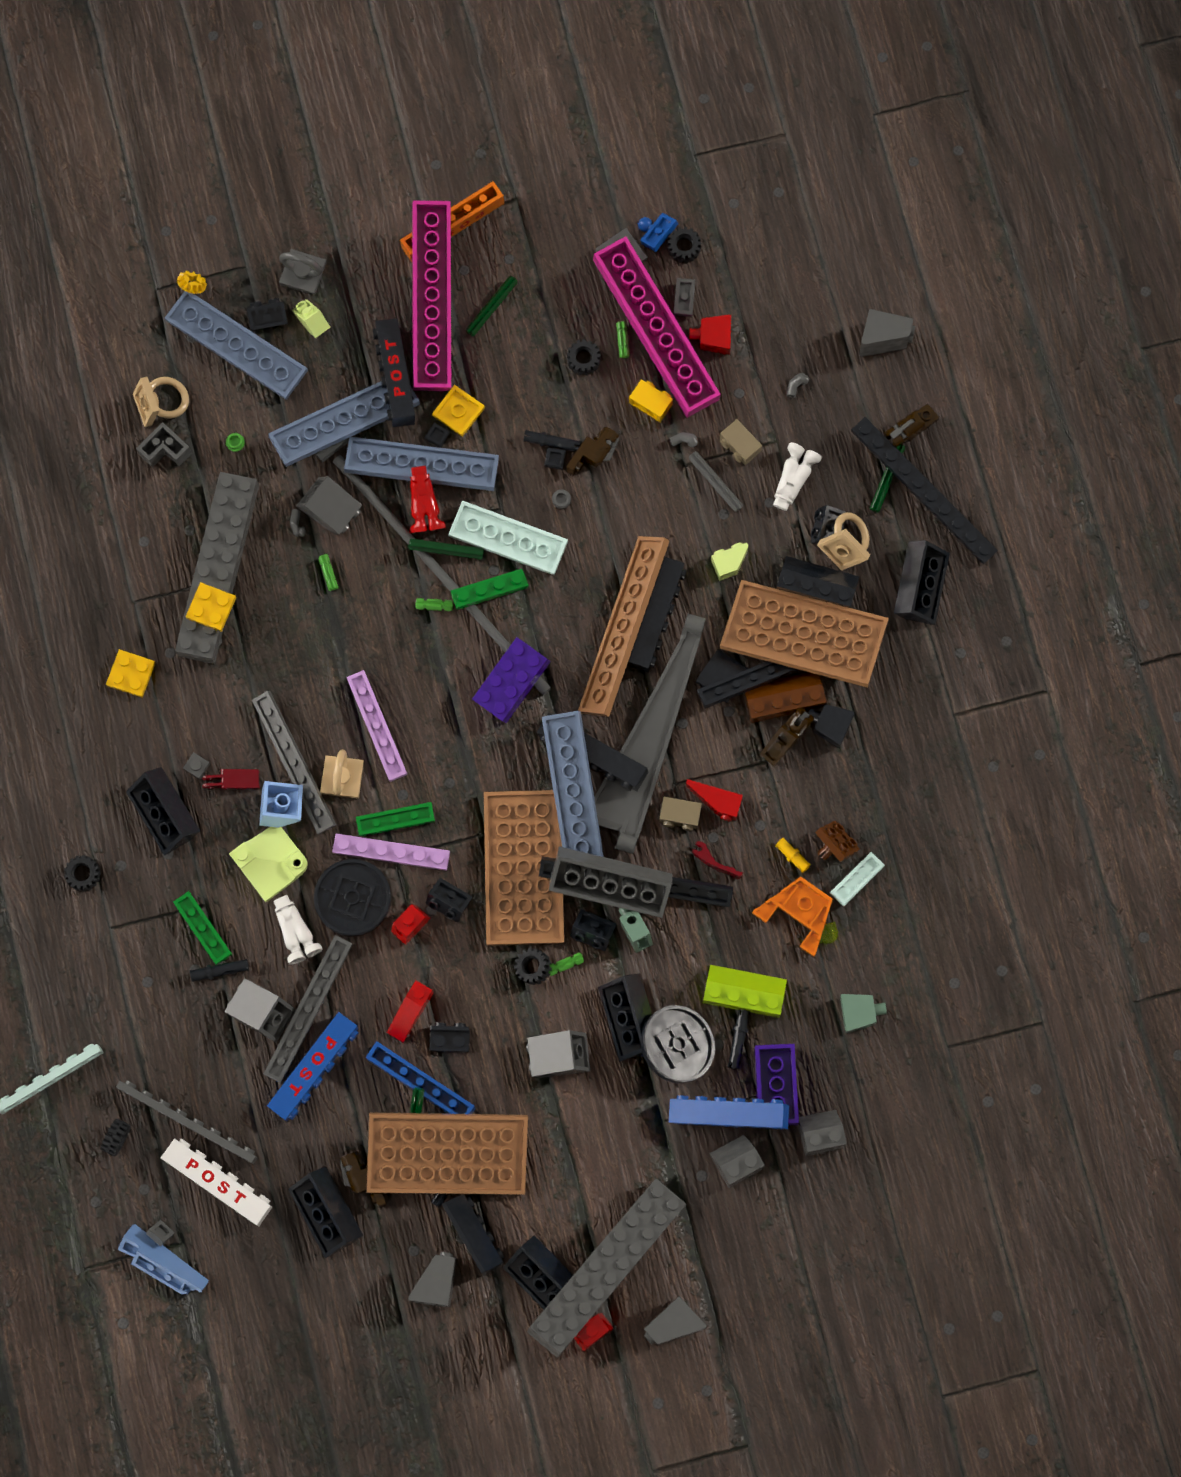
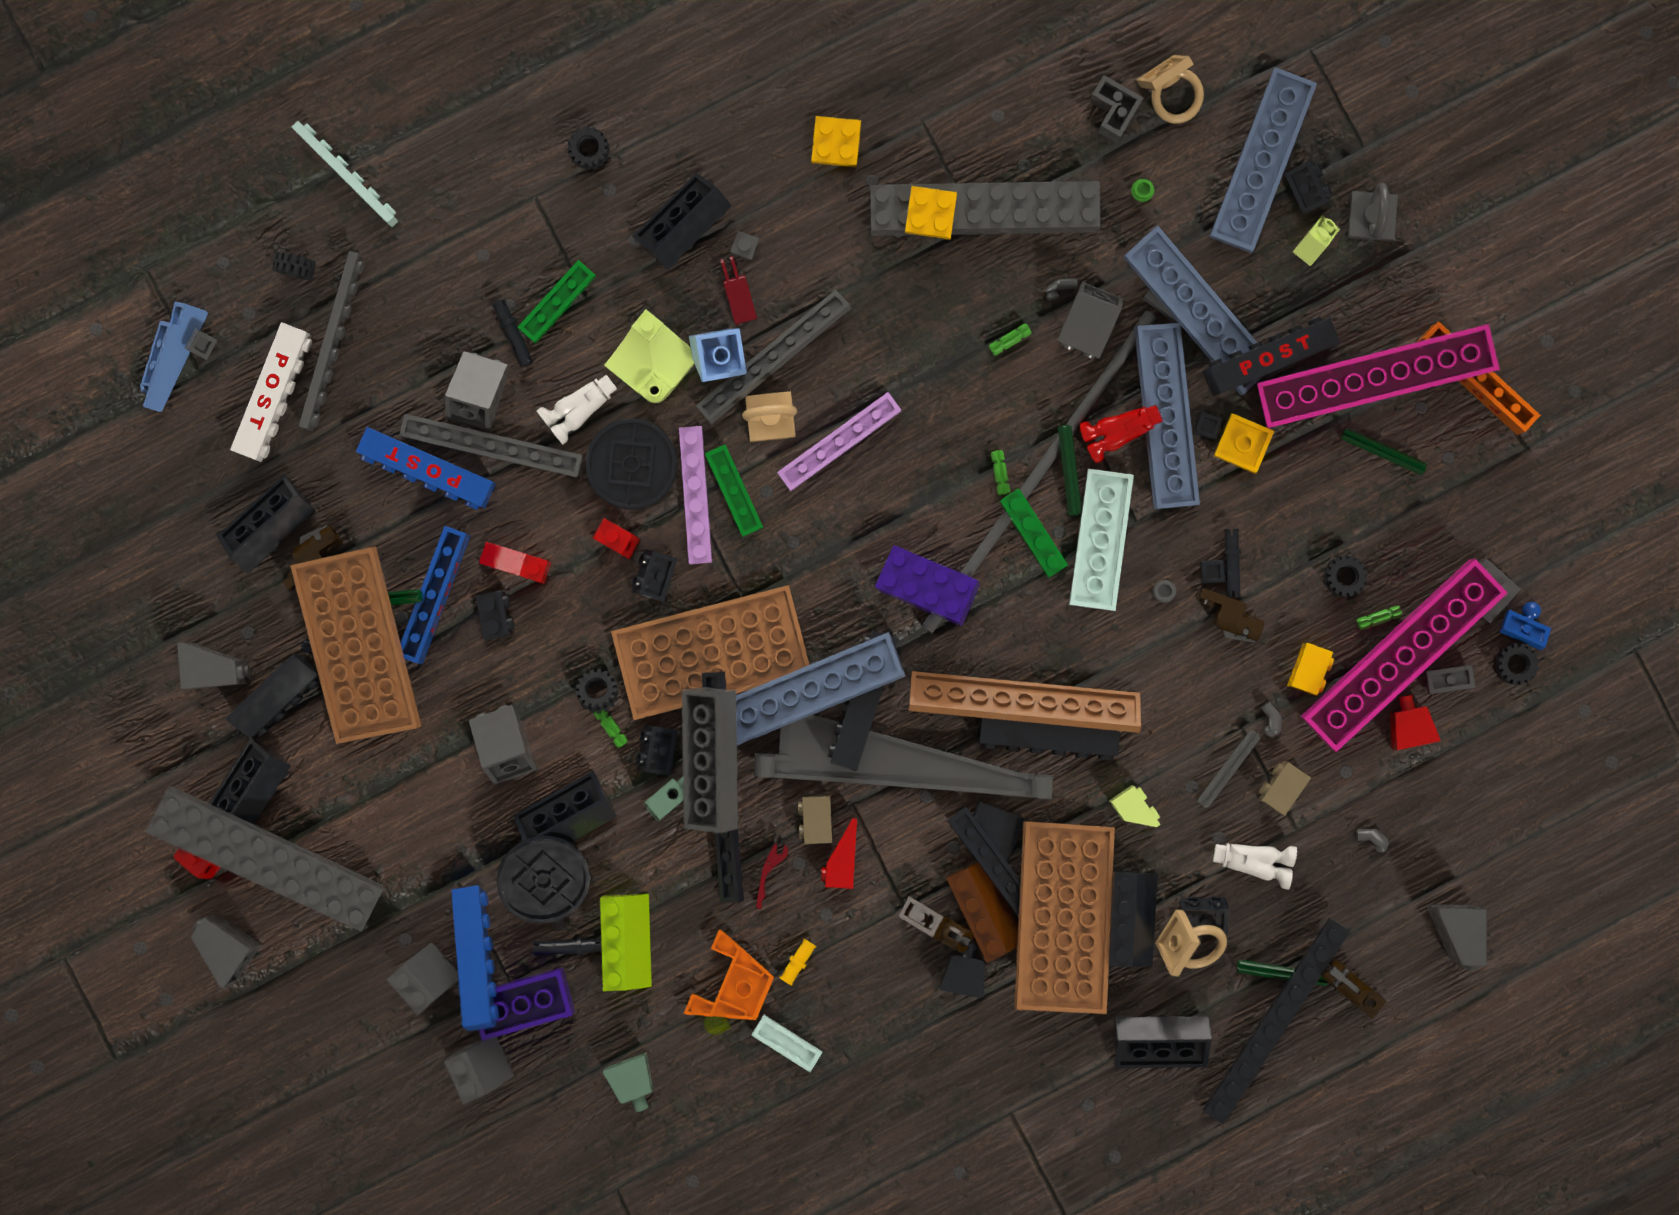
camera: 75 degrees right, 10 degrees up
(196, 286) = (1320, 90): yellow gear -> none
(836, 842) = (823, 1010): reddish brown plate -> none

